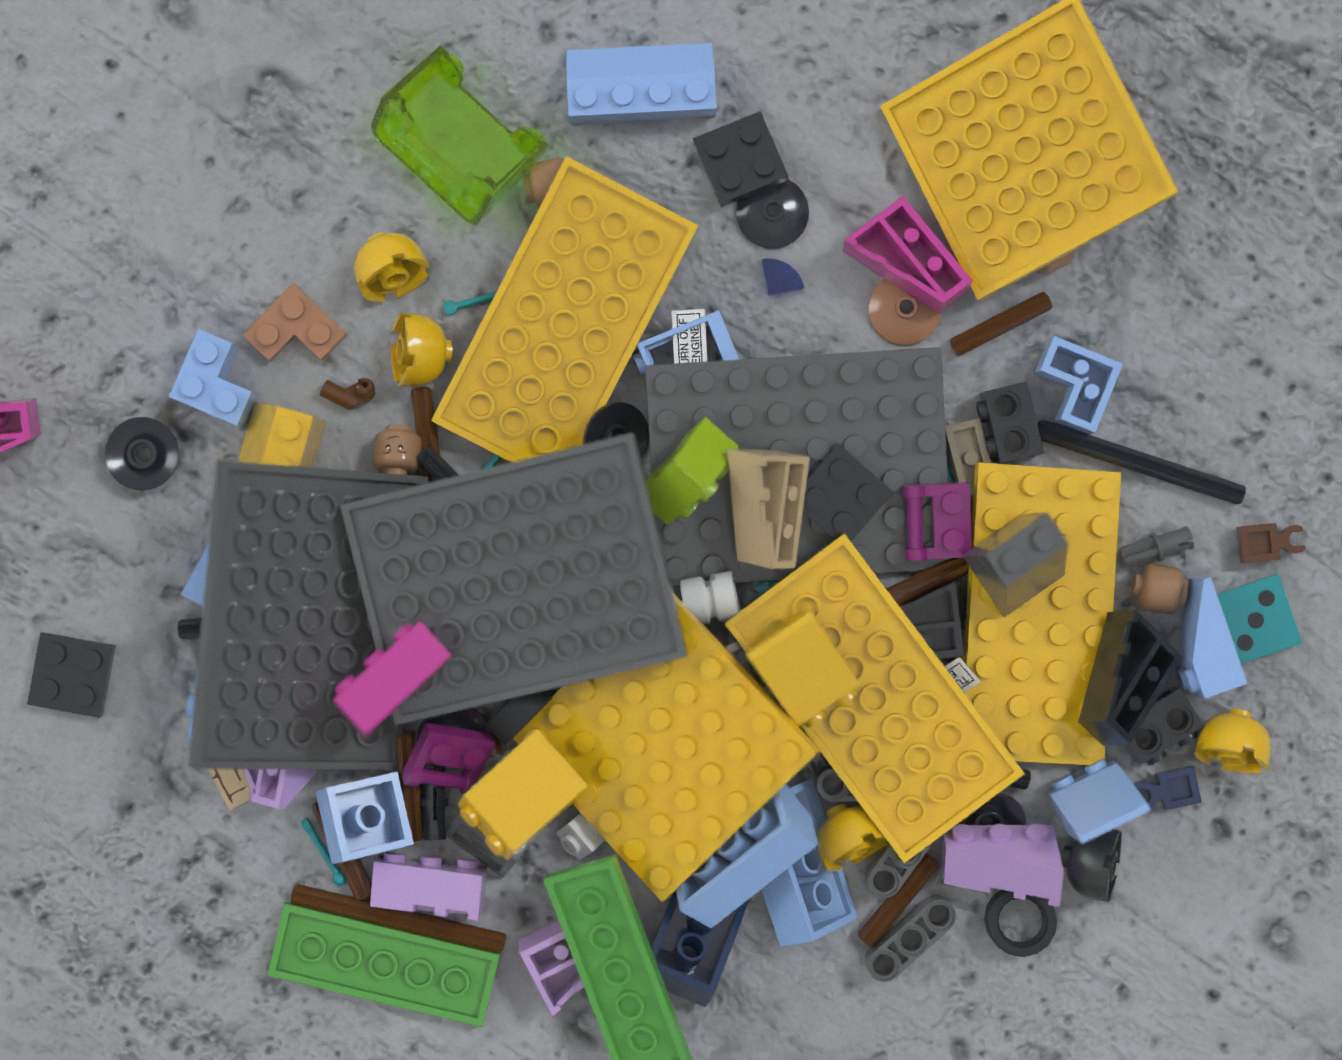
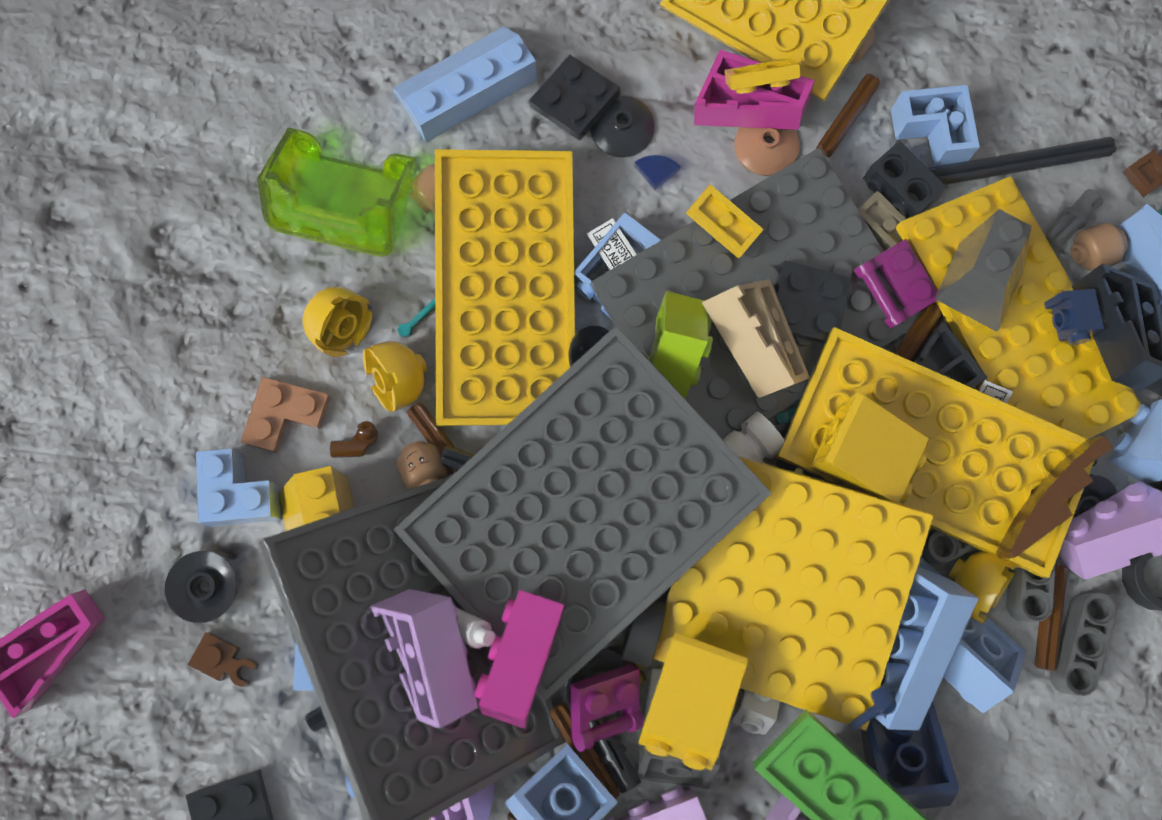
camera: 30 degrees left, 10 degrees down
(125, 526) = (218, 658): none -> reddish brown plate
(317, 632) = (432, 654): none -> lavender wedge
(357, 623) = (474, 630): none -> white cylinder
(686, 888) = (883, 705): none -> dark blue hand
(800, 377) = (724, 221): none -> yellow plate
(921, 250) = (776, 73): none -> yellow plate
(931, 801) = (1046, 504): none -> reddish brown slope
(1084, 644) = (1075, 315): none -> dark blue brick

